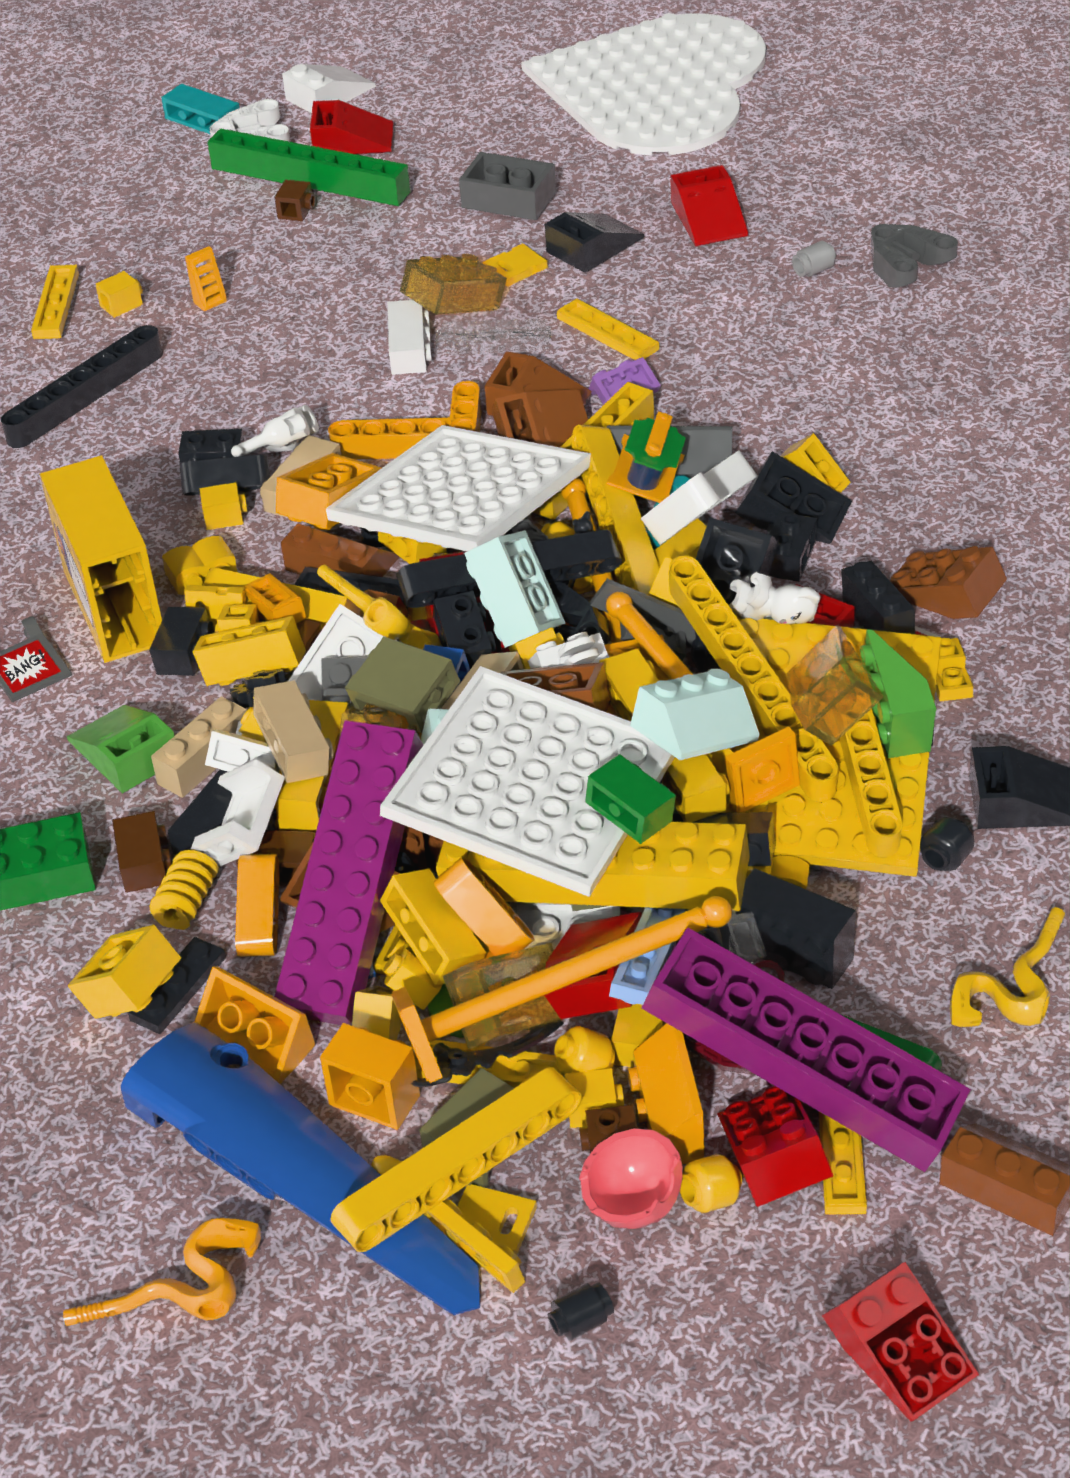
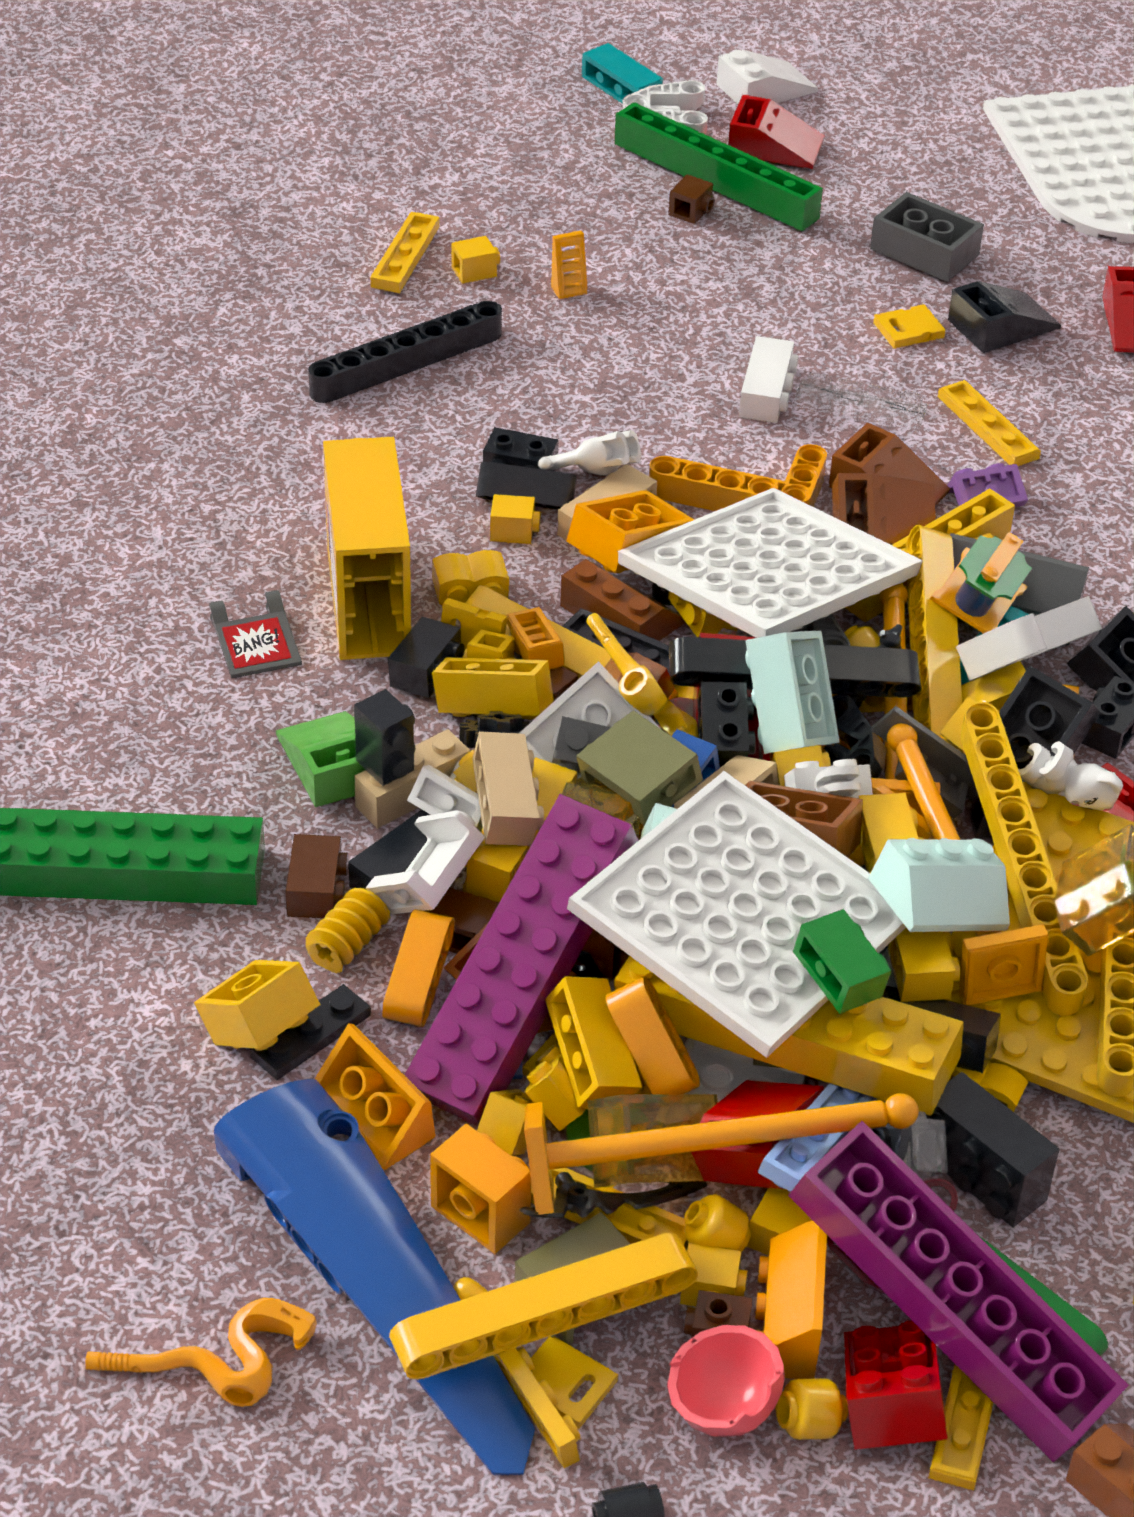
camera: 10 degrees right, 0 degrees up
(170, 714) = (384, 737): none -> black brick
(453, 284) = (832, 333): clear yellow brick -> none

